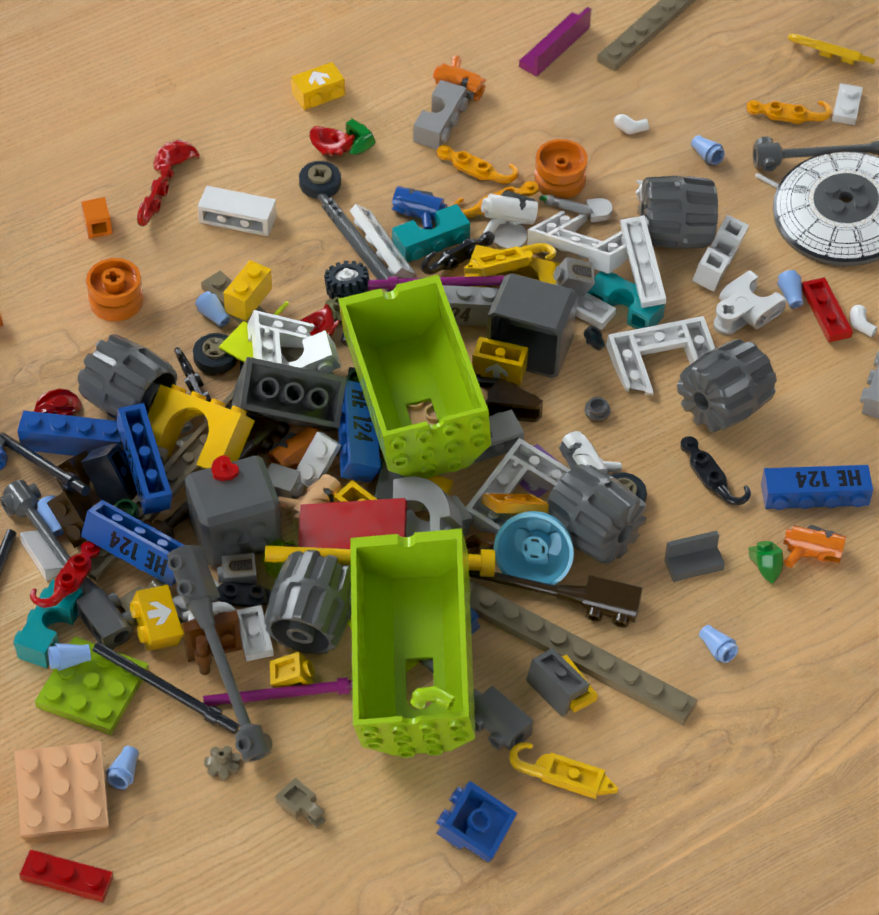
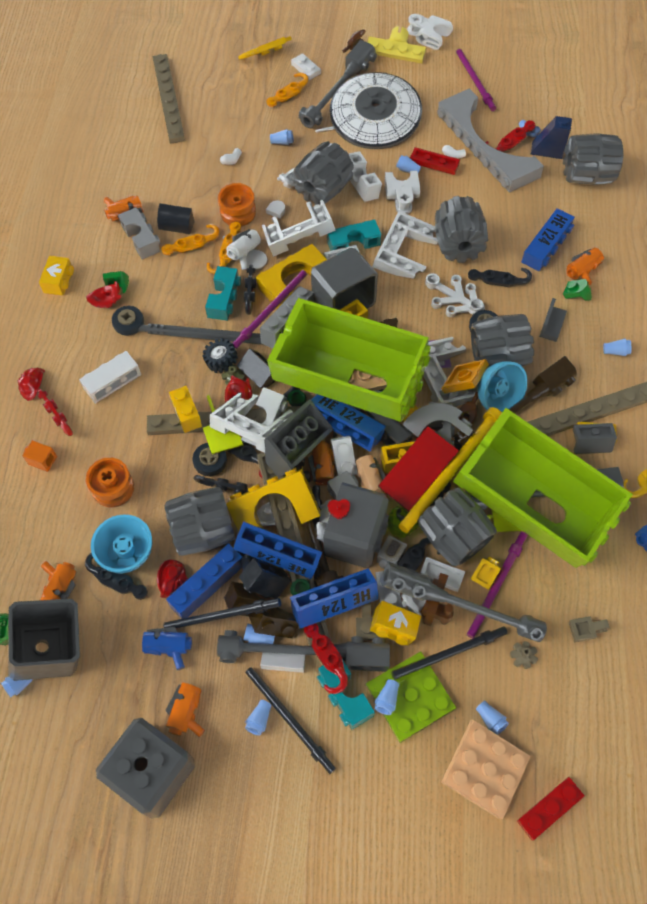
camera: 50 degrees left, 10 degrees up
(17, 364) = (116, 581): none -> black piece
(52, 339) = (120, 535): none -> medium azure piece
(211, 307) = (174, 438): light blue cone -> none
(379, 238) = (213, 322): white plate -> none
(417, 204) = (196, 284): blue piece -> none
(432, 694) = (607, 503): lime arm -> none
(489, 131) = (175, 218): none -> black brick
(507, 259) = (285, 267): yellow plate -> none
(556, 42) = (139, 151): magenta panel -> none
(566, 204) = (249, 225): light grey piece -> none
(575, 275) = (325, 245): light grey brick -> none
(579, 450) = (449, 326): white piece -> none
(597, 409) = (415, 298): flat silver plate -> none
(640, 446) = (457, 296): none -> white plant
(643, 261) = (346, 208): white plate -> none

